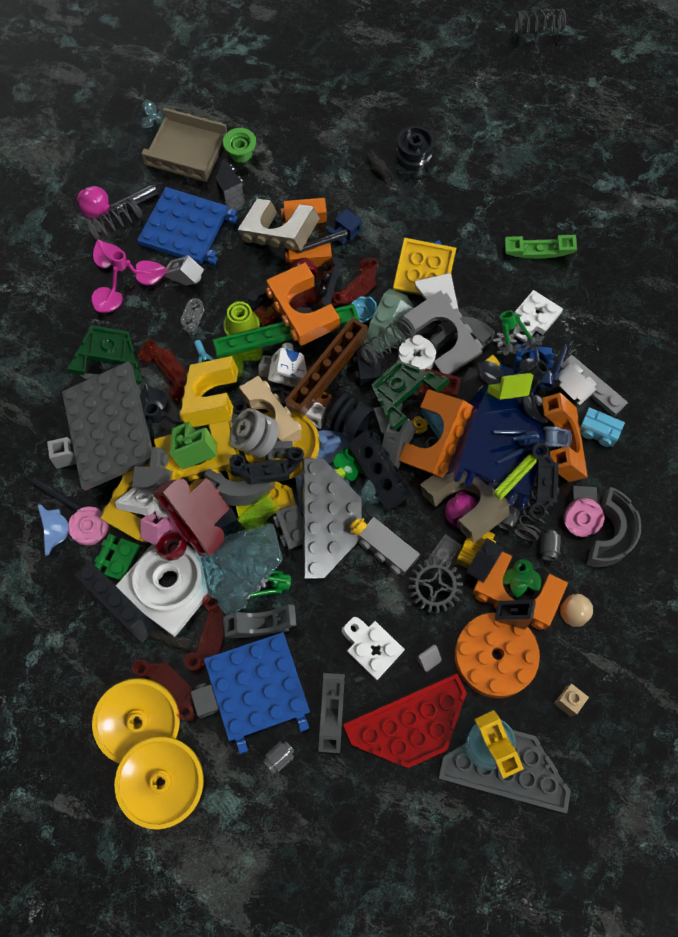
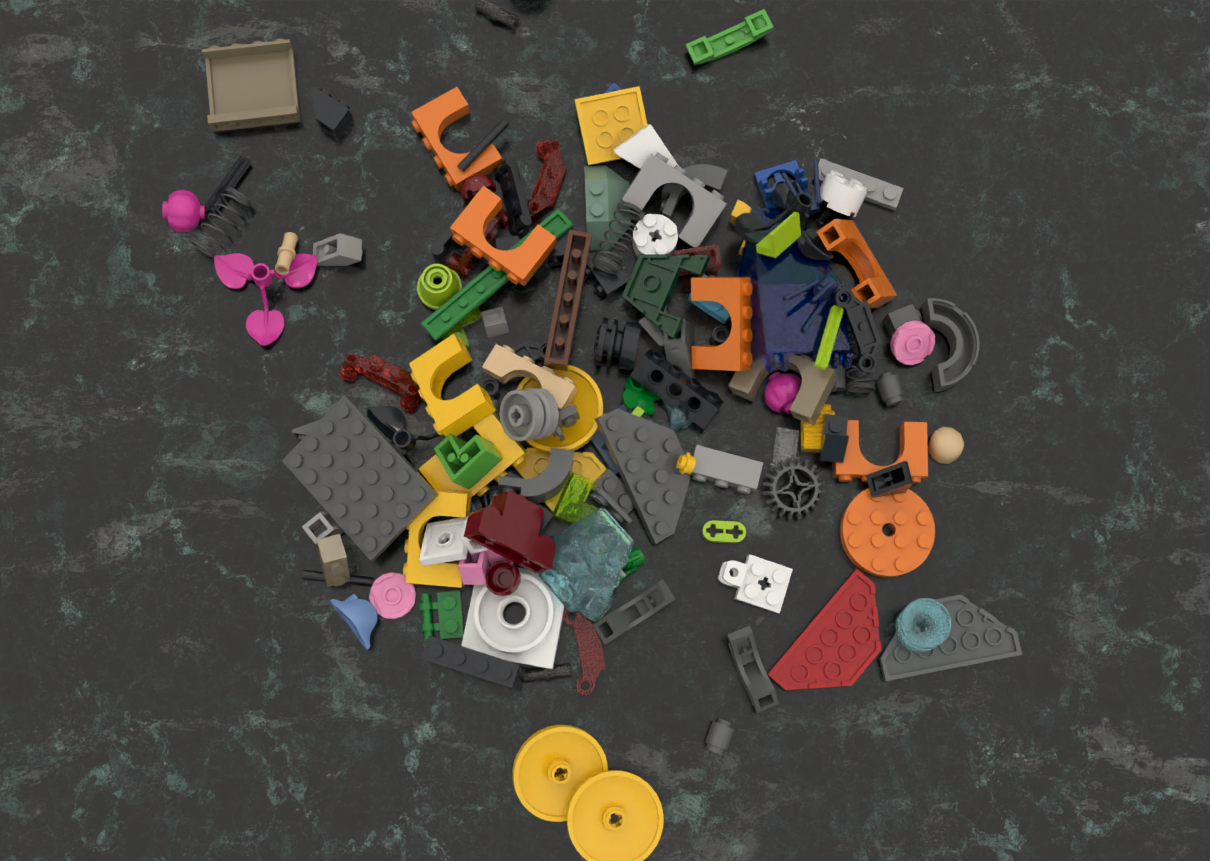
camera: 30 degrees left, 10 degrees up
(56, 476) = (333, 560): none -> dark tan brick
(105, 346) = (299, 384): dark green wing -> none
(146, 257) = (286, 253): none -> tan pin
(150, 110) = (187, 60): clear light blue plant -> none
(154, 476) = (448, 513): dark grey brick -> none
(171, 681) = (570, 714): clear red plate -> none
(185, 225) = (307, 191): blue plate -> none
(188, 314) = (370, 299): clear beam -> none
(202, 354) = (413, 342): medium azure plant -> none
(205, 700) = (617, 717): dark grey brick -> none
(239, 144) = (318, 56): bright green piece -> none
(257, 688) = (663, 680): blue plate -> none
(266, 471) = (564, 449): black plate -> none
(287, 366) = (519, 315): white torso -> none
(289, 236) = (446, 155): dark tan arch -> none
(319, 409) = (578, 352): white leg -> none
(331, 444) = (610, 383): medium blue shield -> none
(348, 222) = (495, 108): dark blue brick -> none
(365, 308) = (570, 204): medium azure hair -> none
(366, 591) = (724, 526): none -> lime beam
(418, 420) = (699, 318): yellow plate -> none
(429, 658) = (821, 565): light grey slope -> none
(498, 744) = (934, 624): yellow brick -> none
(509, 322) = (741, 157): plant -> none
(521, 580) = (877, 441): green plate -> none
(534, 321) = (758, 136): white plate -> none
(557, 437) = (849, 267): sand blue piece -> none
(571, 700) = (980, 541): tan brick -> none
(601, 427) = (887, 231): medium azure brick -> none

